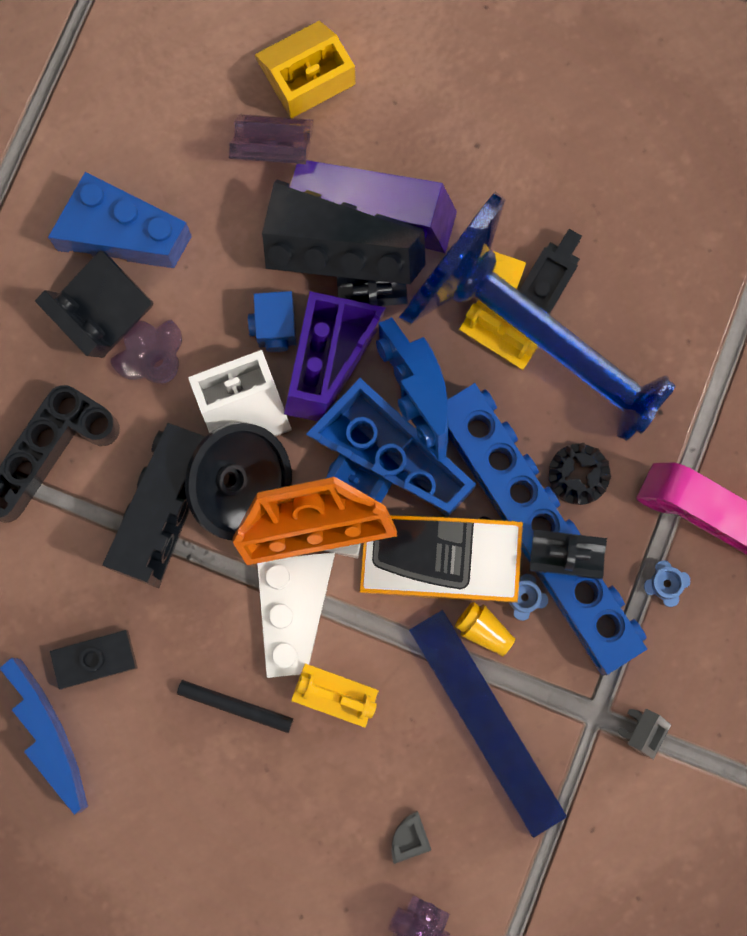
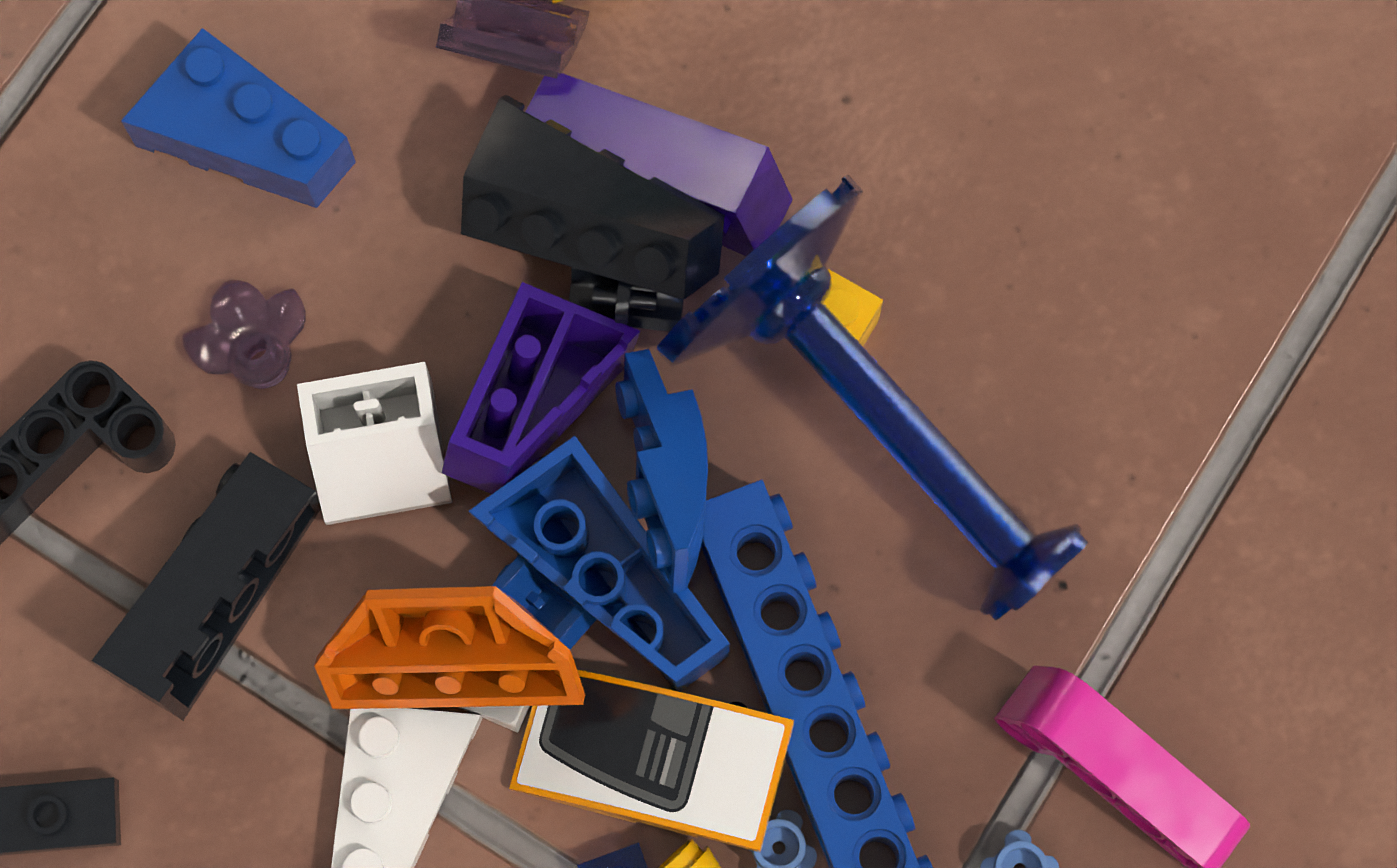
camera: 10 degrees right, 5 degrees down
(97, 306) = (177, 245): black bracket -> none
(254, 465) = (376, 541): black dish -> none
(273, 321) = (457, 320): blue brick -> none
(498, 335) = (817, 411): yellow hinge -> none
(552, 272) = (925, 326): black hinge -> none
(568, 554) = (856, 786): black hips -> none
(573, 490) = (892, 685): black gear -> none

